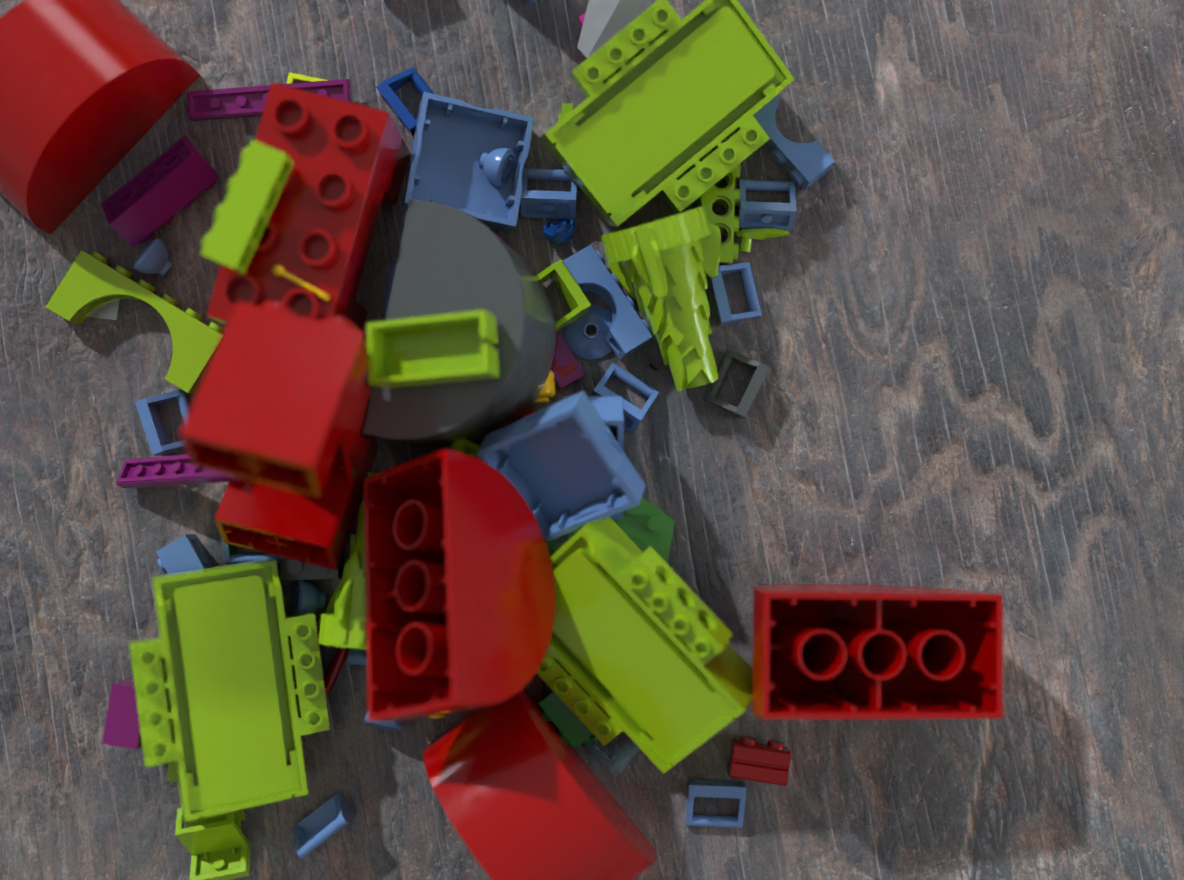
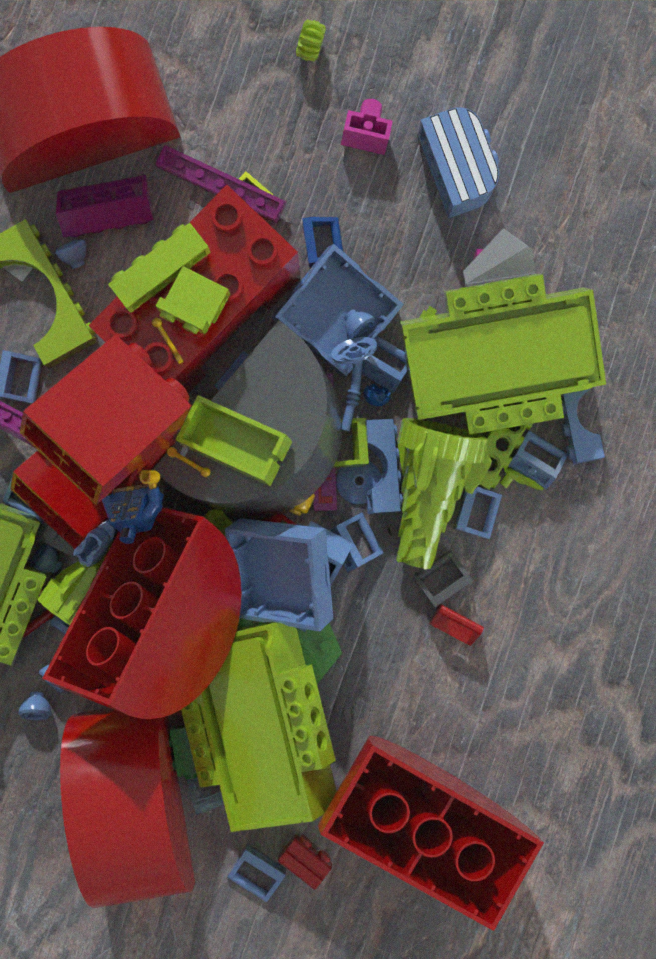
camera: 25 degrees right, 0 degrees up
(304, 221) = (193, 301): none -> lime piece
(347, 546) = (95, 544): none -> medium blue animal
(366, 483) = (135, 507): none -> blue torso
(375, 402) = (172, 452): none -> yellow hinge
(382, 761) = (35, 707): none -> medium blue brick
(514, 198) = (356, 357): none -> medium blue dish
(778, 424) = (456, 625): none -> red tile

